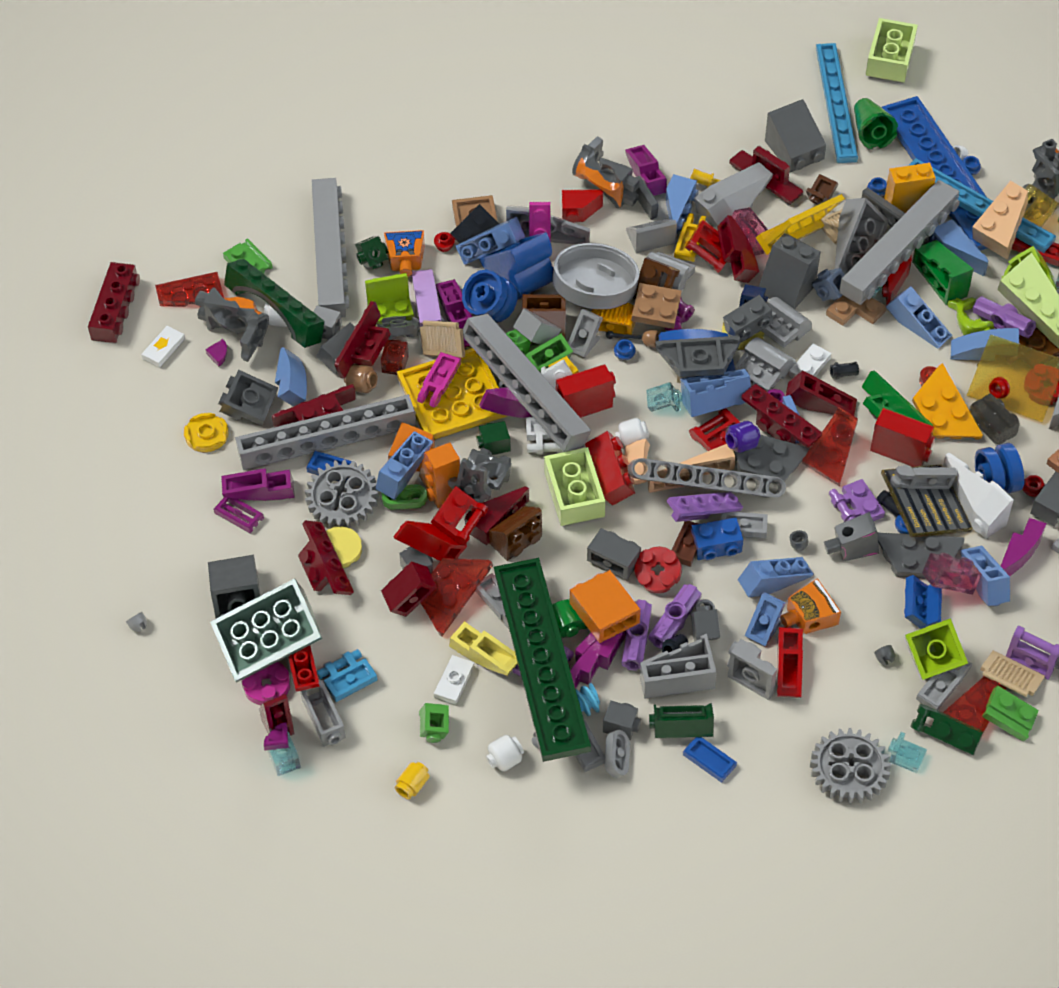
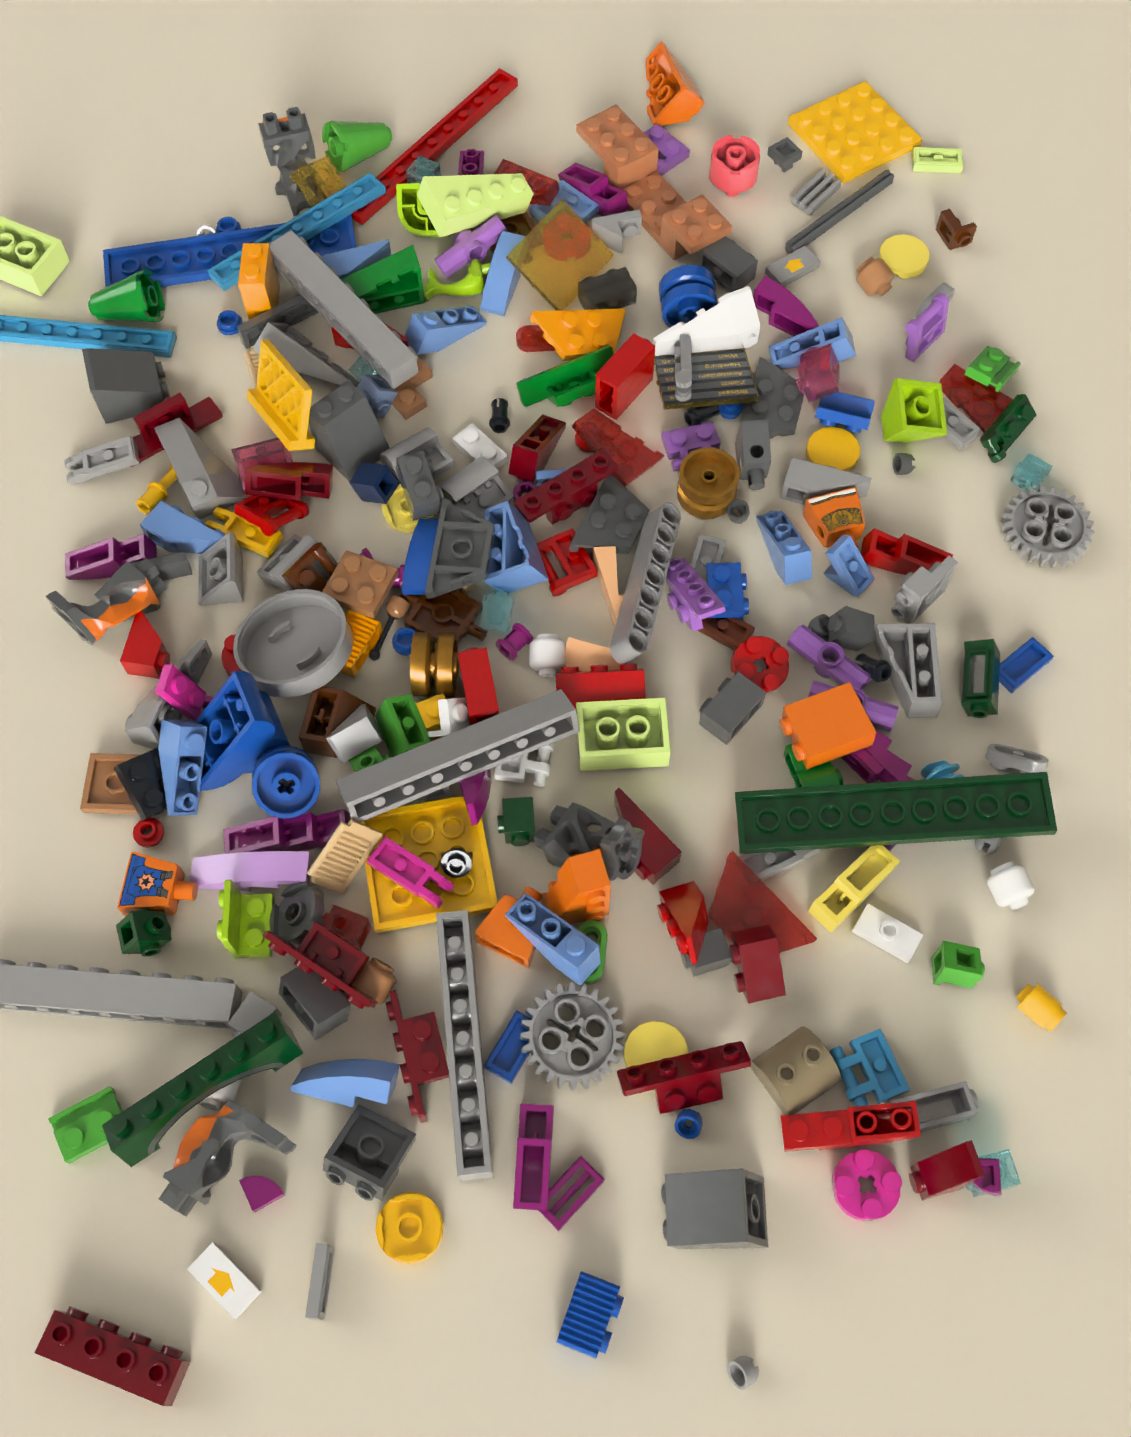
camera: 80 degrees left, 10 degrees up
(162, 531) = (589, 1315): none -> blue brick
(166, 390) = (319, 1282): none -> light grey tile
(184, 291) = (125, 1219): clear red wing -> none
(266, 630) = (811, 1167): sand green slope -> none
(293, 570) = (685, 1131): none -> blue hinge
(340, 628) = (796, 1070): none -> dark tan brick
(451, 404) = (456, 862): none -> plate
(452, 512) = (657, 883): red plate -> none
(517, 532) = (680, 812): reddish brown slope -> none
(584, 333) = (371, 678): light grey slope -> none
(601, 351) = (433, 664): none -> pearl gold wheel
(621, 717) = (970, 745): dark grey brick -> none
(638, 411) = (514, 641): none -> magenta bush
(647, 368) = (445, 614): none -> reddish brown plate
(726, 144) = (102, 460): none -> light grey hinge
(742, 436) = (599, 527): dark purple head -> none
(816, 510) = (707, 482): none -> pearl gold wheel
(821, 190) = (217, 377): reddish brown bracket -> none
(841, 586) = (810, 480): none -> light grey slope
(883, 603) = (833, 448): none -> yellow tile
(999, 387) = (571, 278): red plate -> none
(1001, 220) = (342, 206): light nougat wedge -> none
(1011, 674) = (940, 358): tan window -> none

